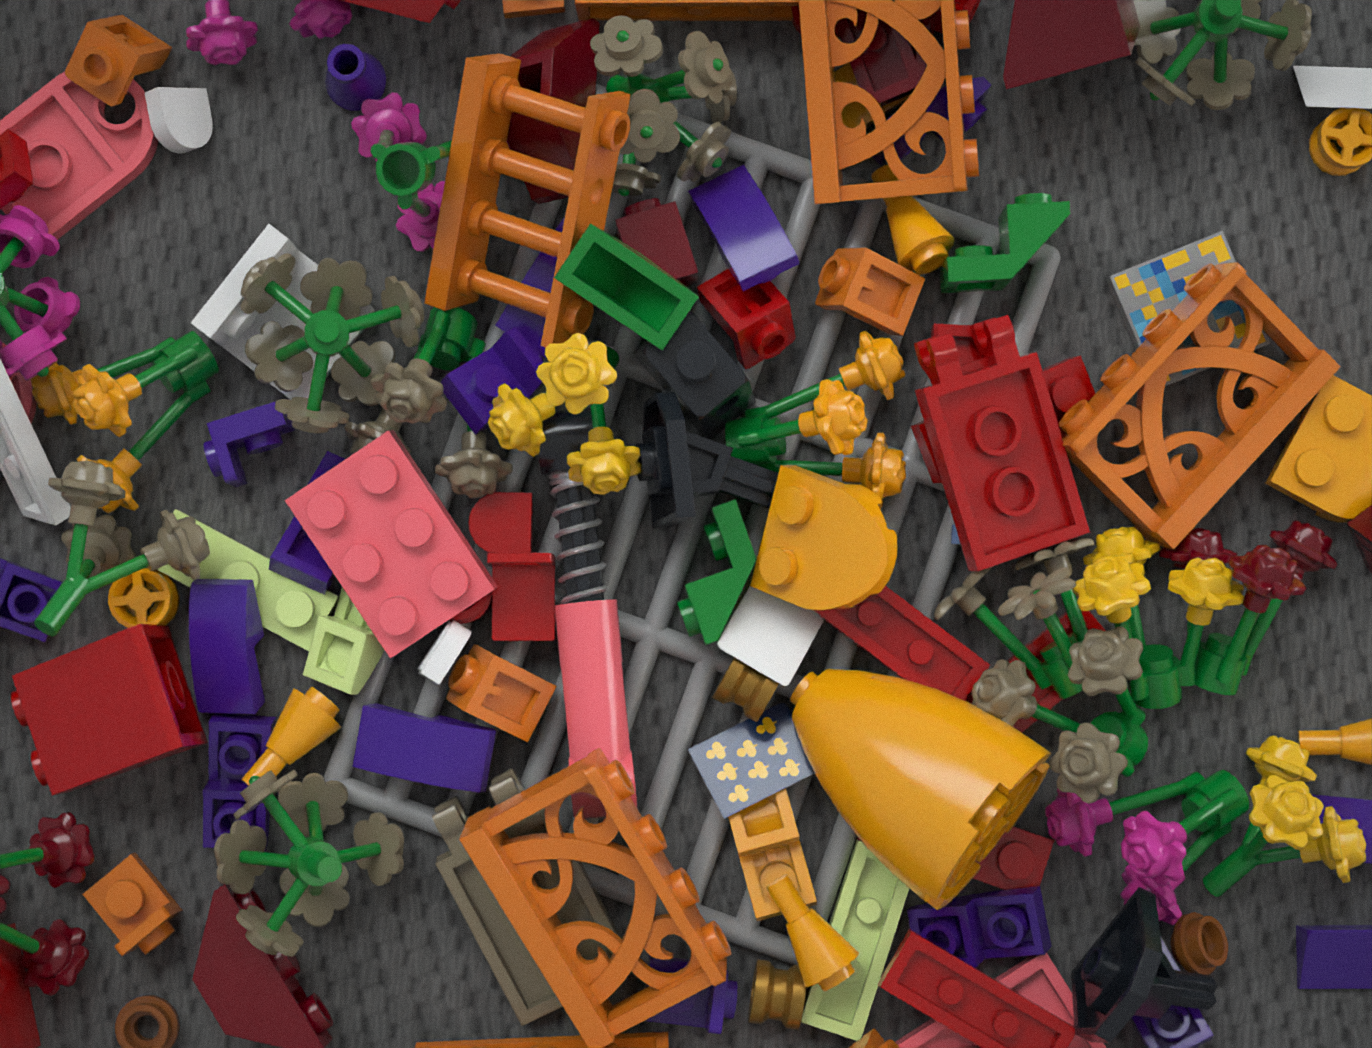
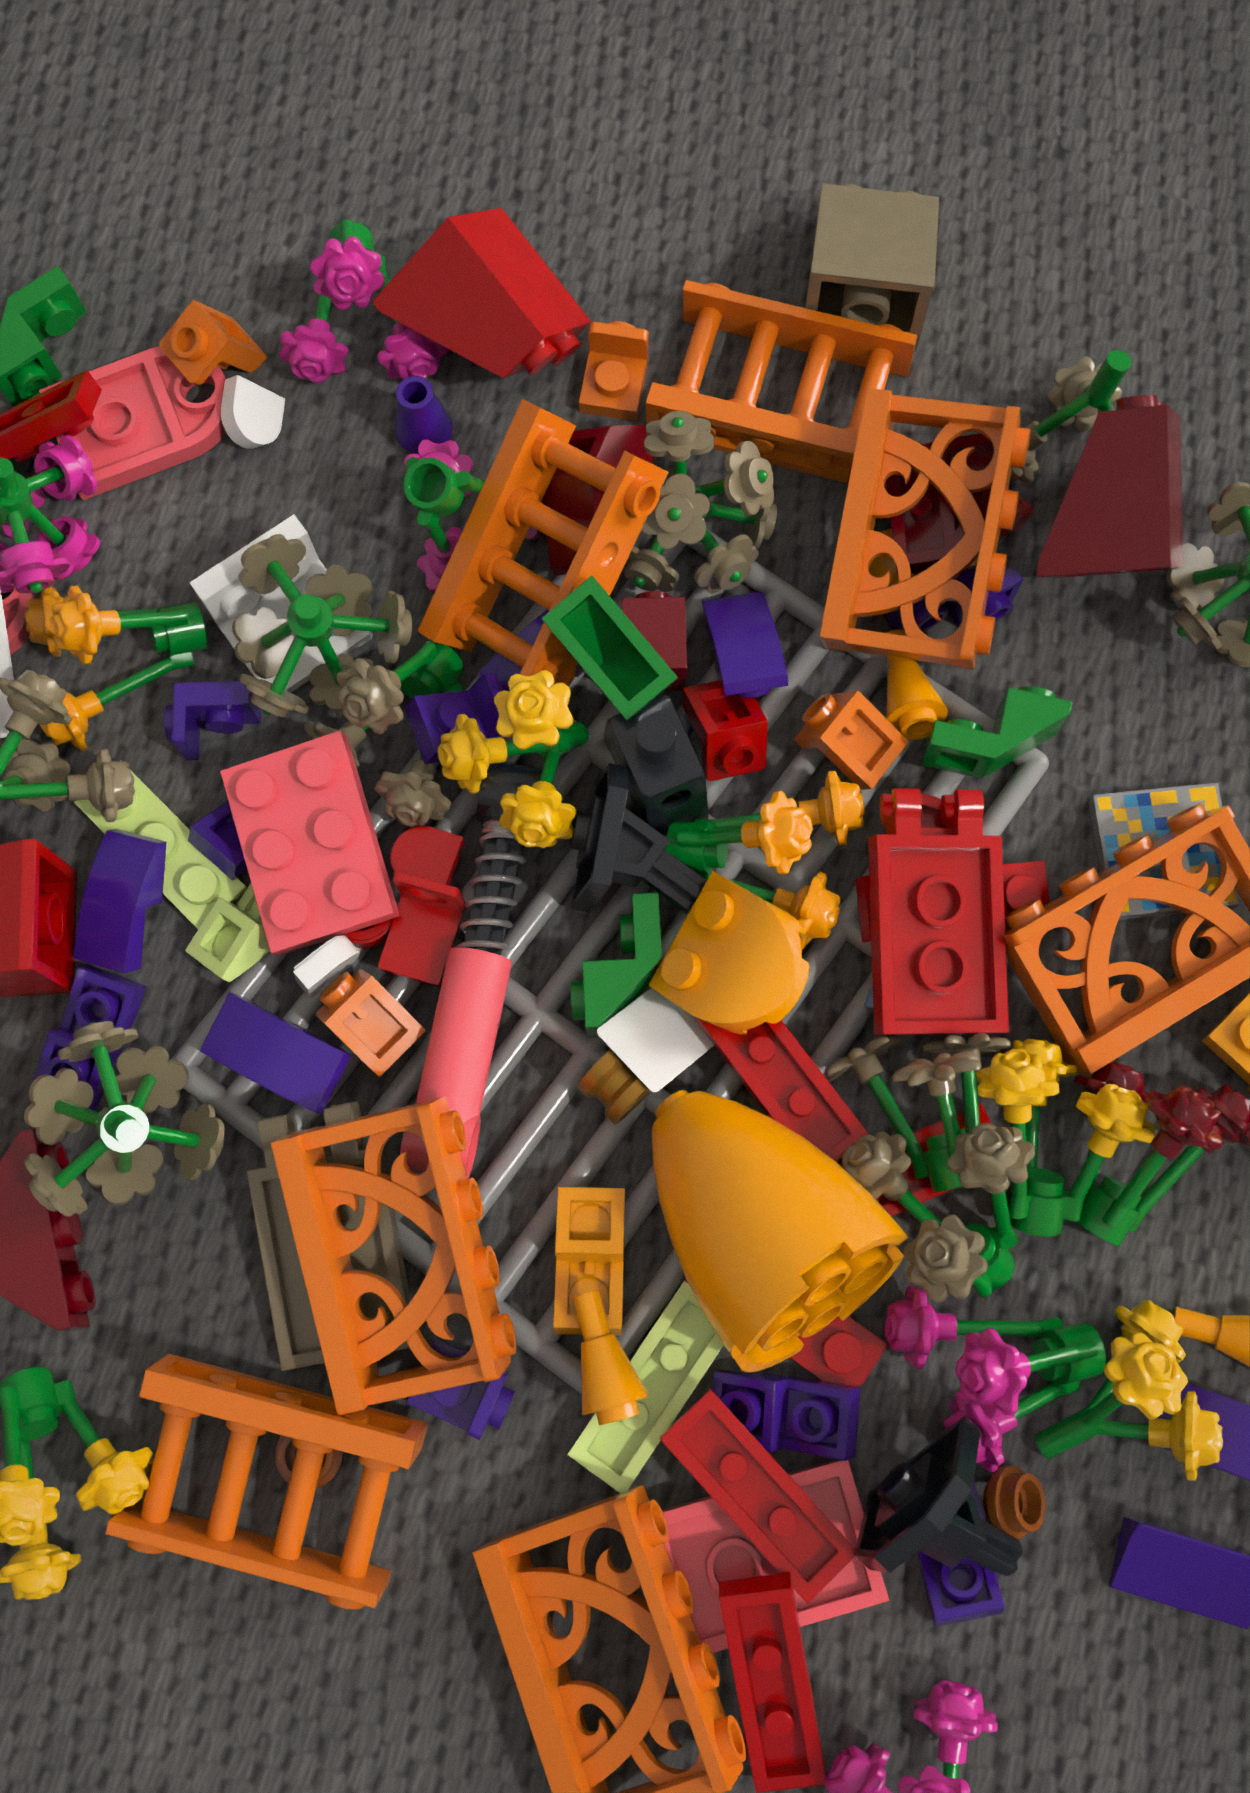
camera: 25 degrees right, 10 degrees down
(131, 599) = (49, 826): light orange wheel -> none
(300, 728) = (164, 1000): light orange cone -> none
(752, 760) = (598, 1164): sticker -> none
(777, 995) = (551, 1418): pearl gold wheel -> none

